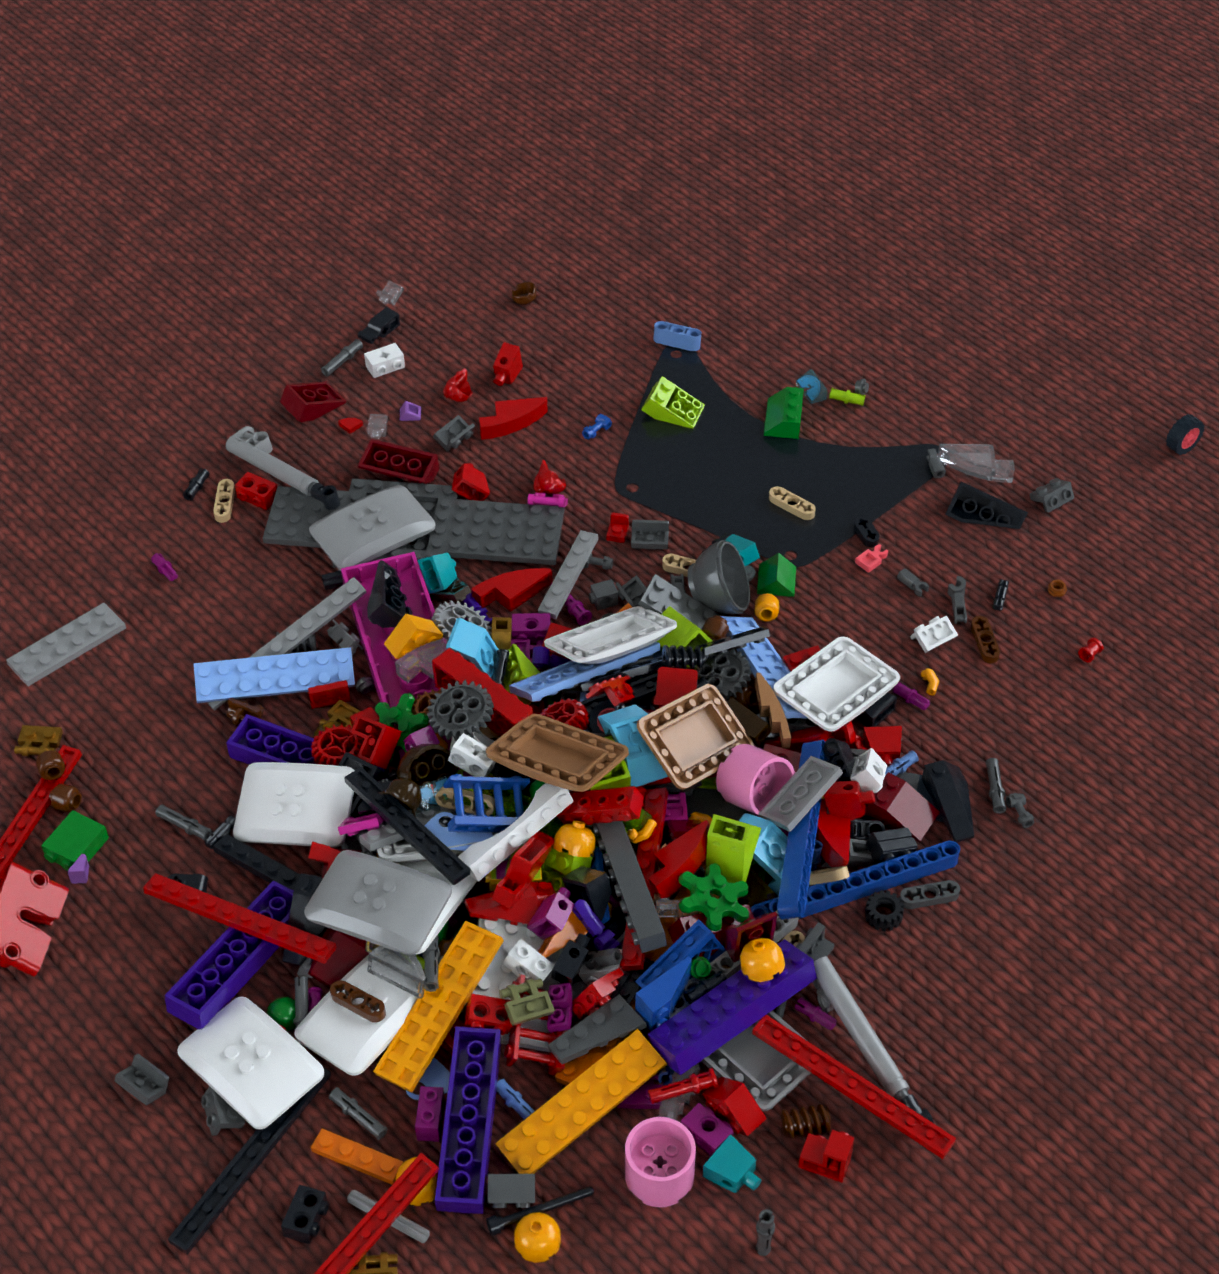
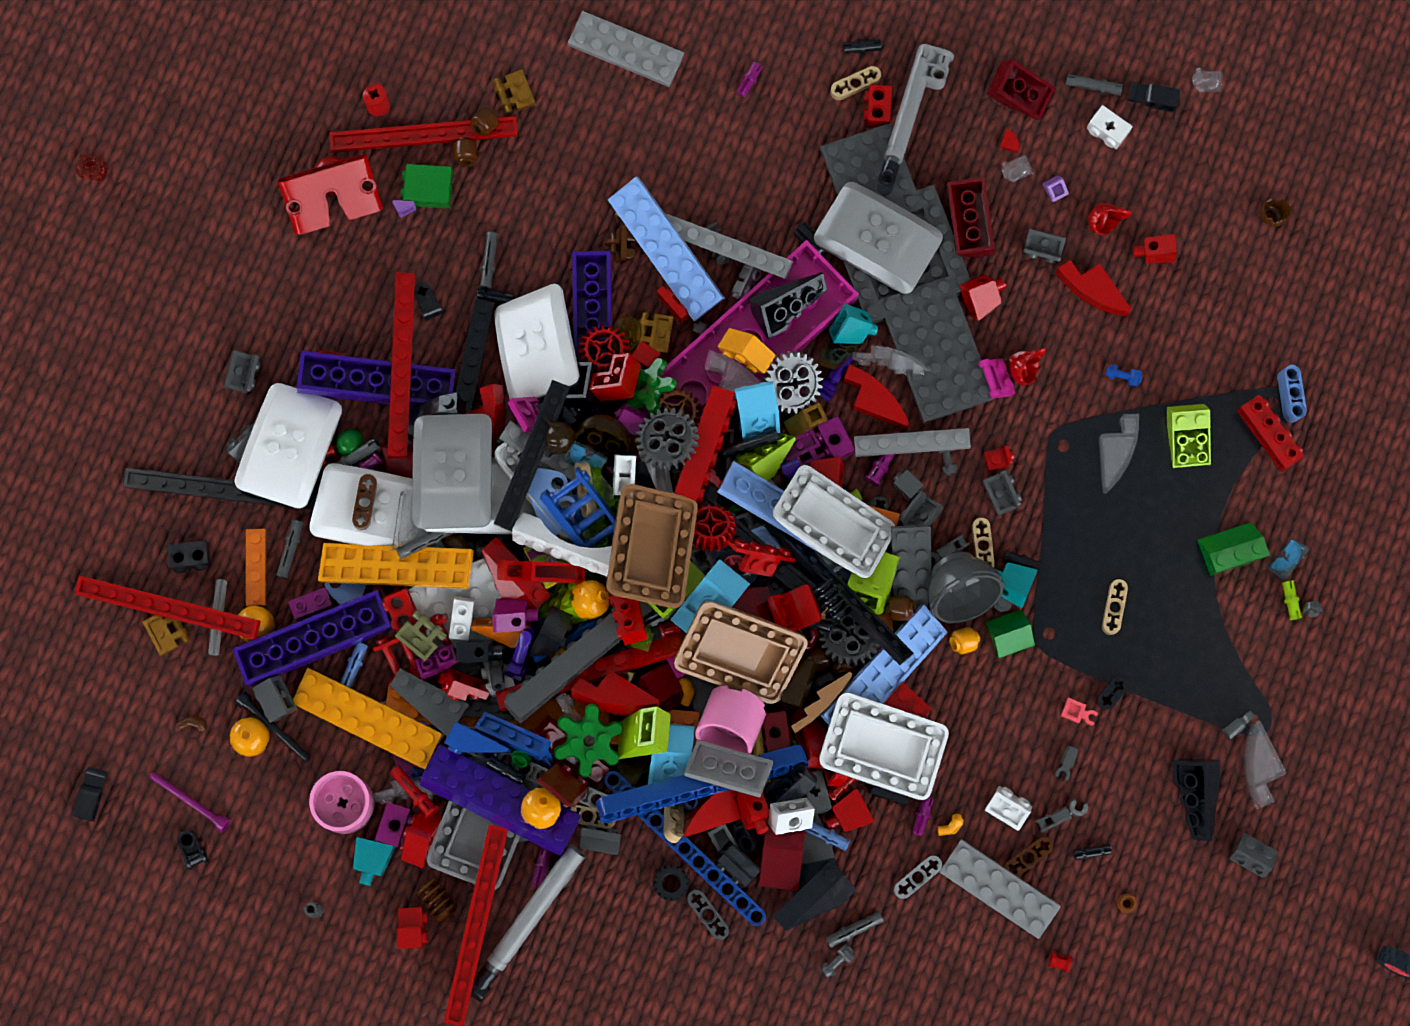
camera: 60 degrees right, 30 degrees up
(490, 550) = (897, 360): none -> clear slope
(638, 836) = (627, 652): light orange arm -> none
(660, 451) = (1117, 450): none -> clear slope
(702, 358) = (1271, 433): none -> red brick
(968, 714) = (932, 872): none -> light grey beam
(1004, 667) = (1000, 889): none -> light grey plate

